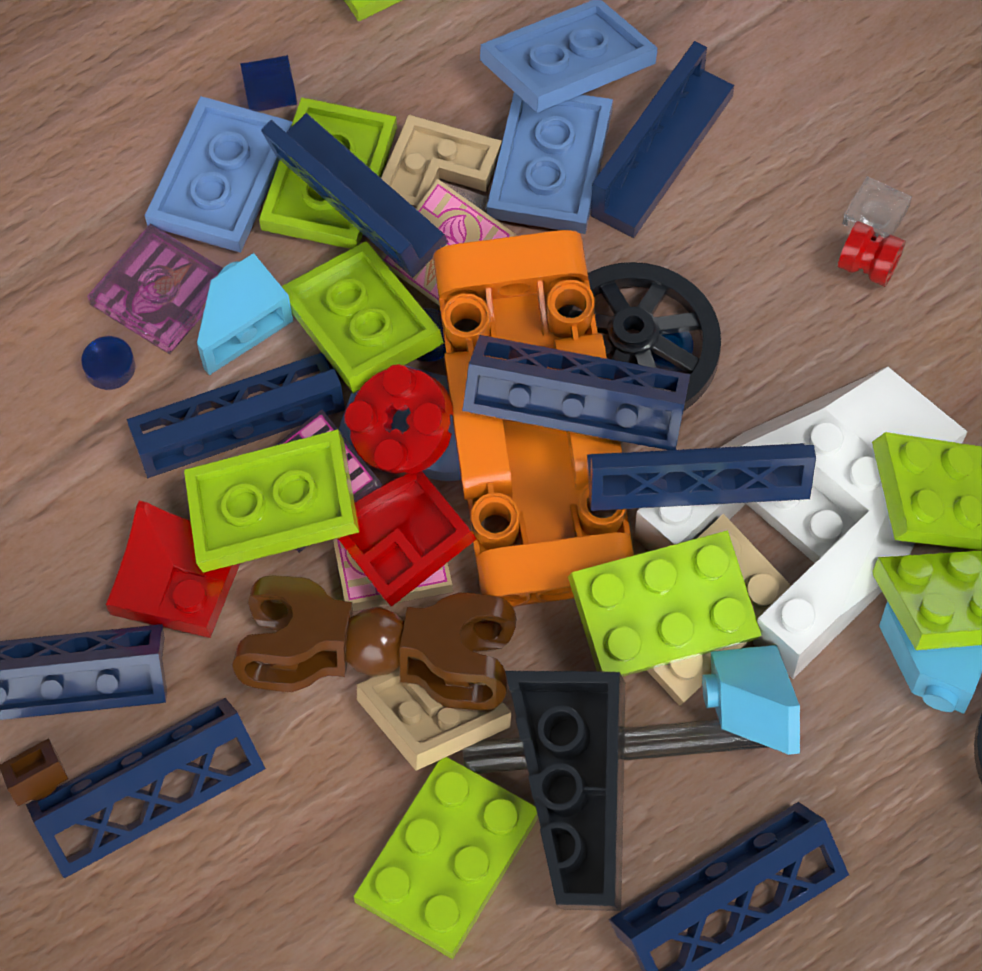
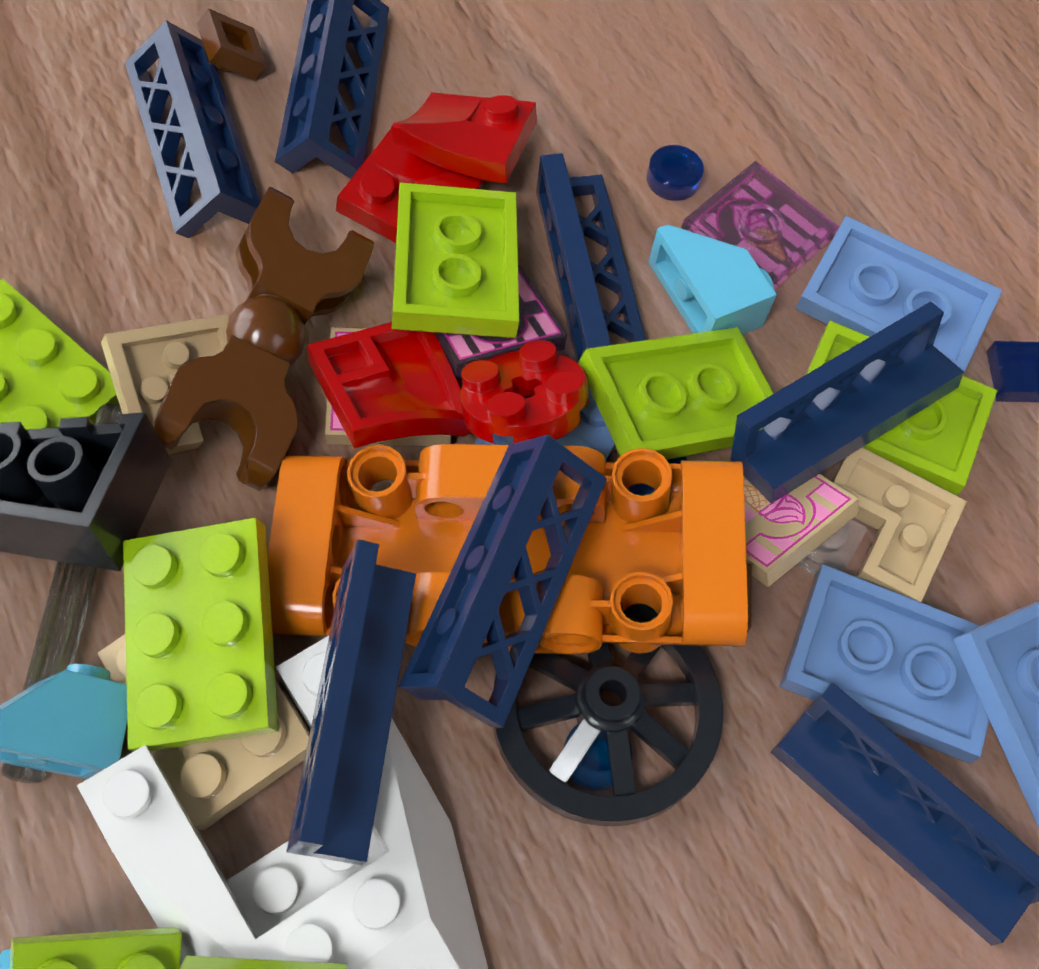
camera: 90 degrees right, 0 degrees up
(113, 527) = (469, 133): none -> red plate

